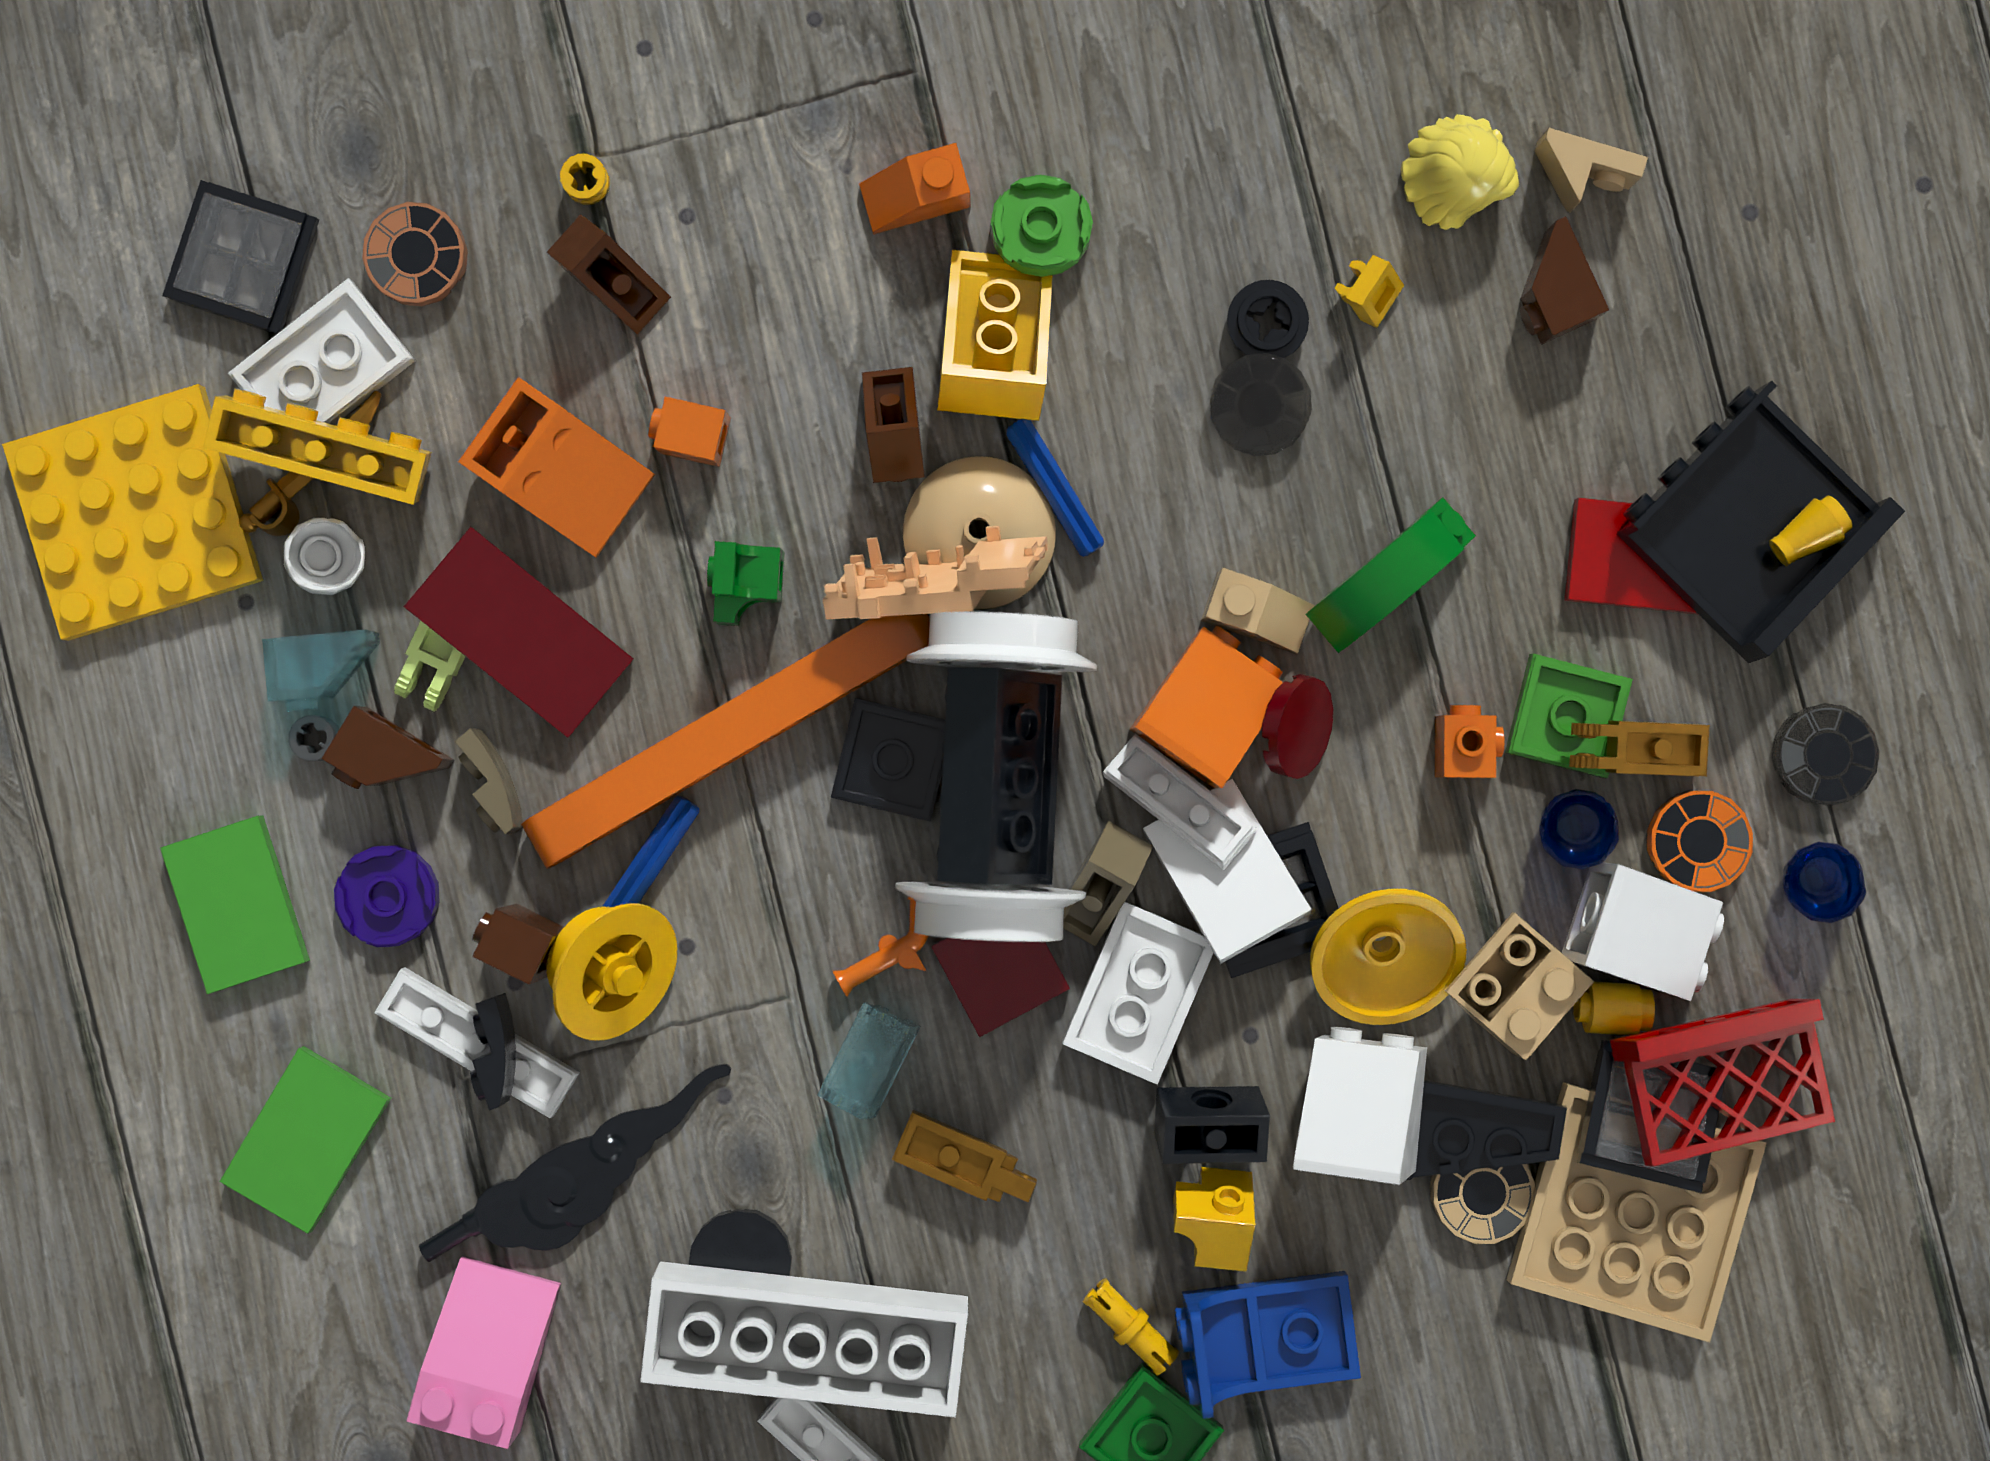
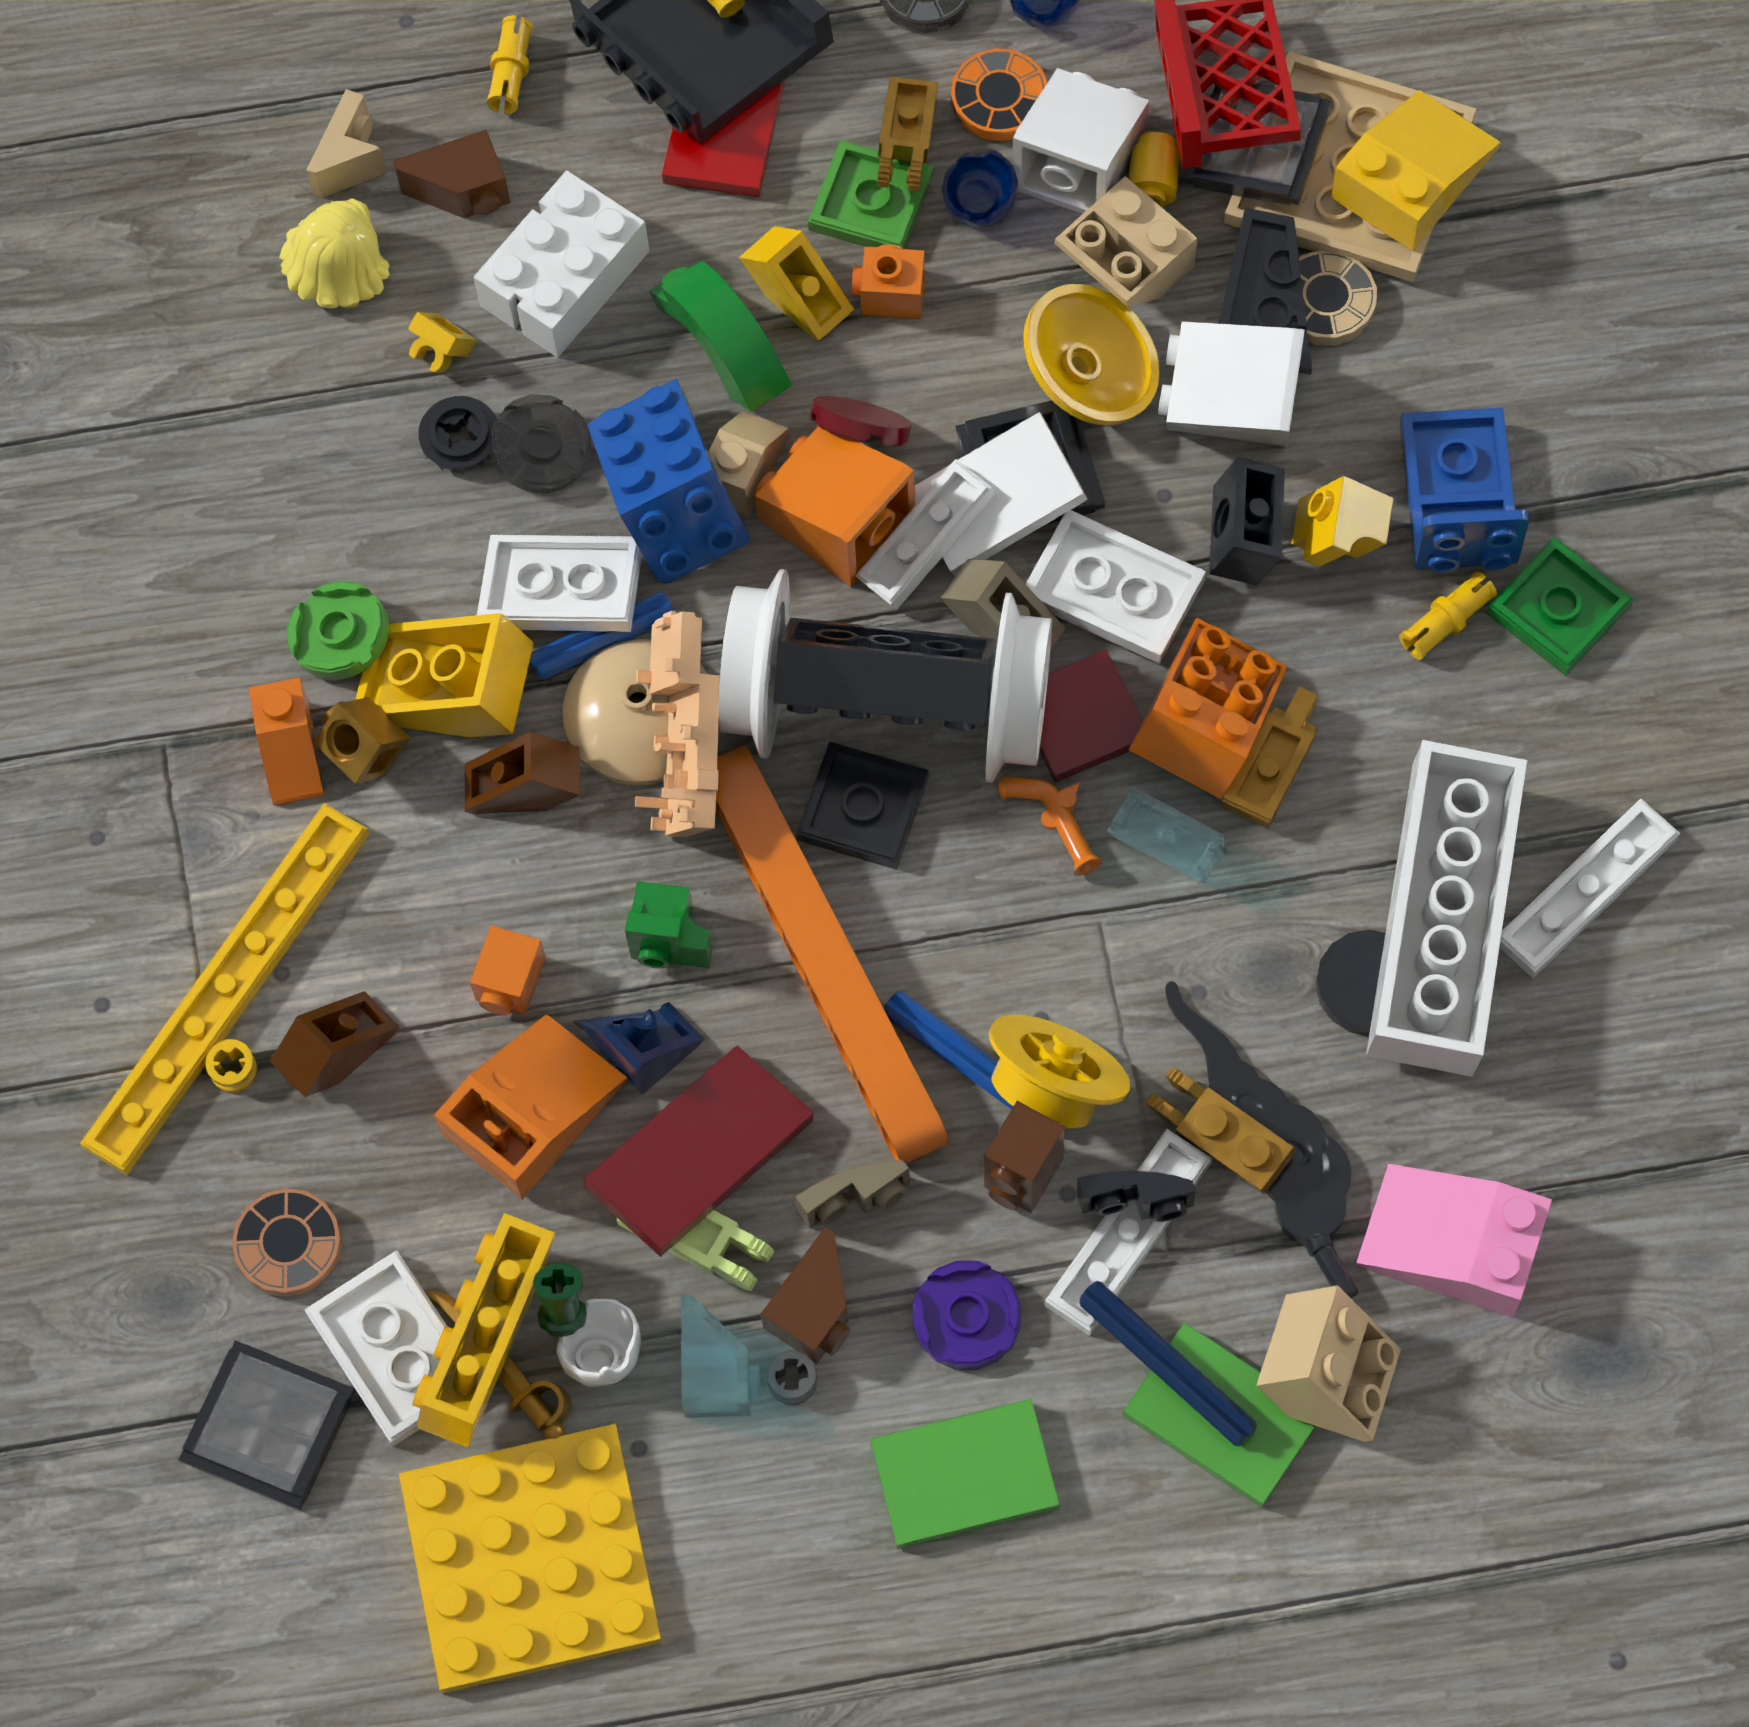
camera: 80 degrees left, 20 degrees down
(338, 1088) = (1168, 1363): none -> dark blue axle
(345, 1239) = (1329, 1363): none -> tan slope
(359, 503) = (559, 1291): none -> dark green bush
(573, 1129) = (1225, 1133): none -> pearl gold hinge
(633, 564) = (643, 1043): none -> dark blue slope
(665, 164) = (224, 989): none -> yellow tile
(919, 260) = (374, 750): none -> pearl gold brick
(1008, 1096) = (1209, 708): none -> orange slope
(1105, 440) = (562, 581): none -> white tile
(1220, 530) = (666, 483): none -> blue bracket
(1460, 647) = (797, 281): none -> yellow slope
(1464, 405) = (562, 263): none -> white piece
(1629, 1282) = (1411, 168): none -> yellow slope
(1699, 326) = (509, 64): none -> yellow pin

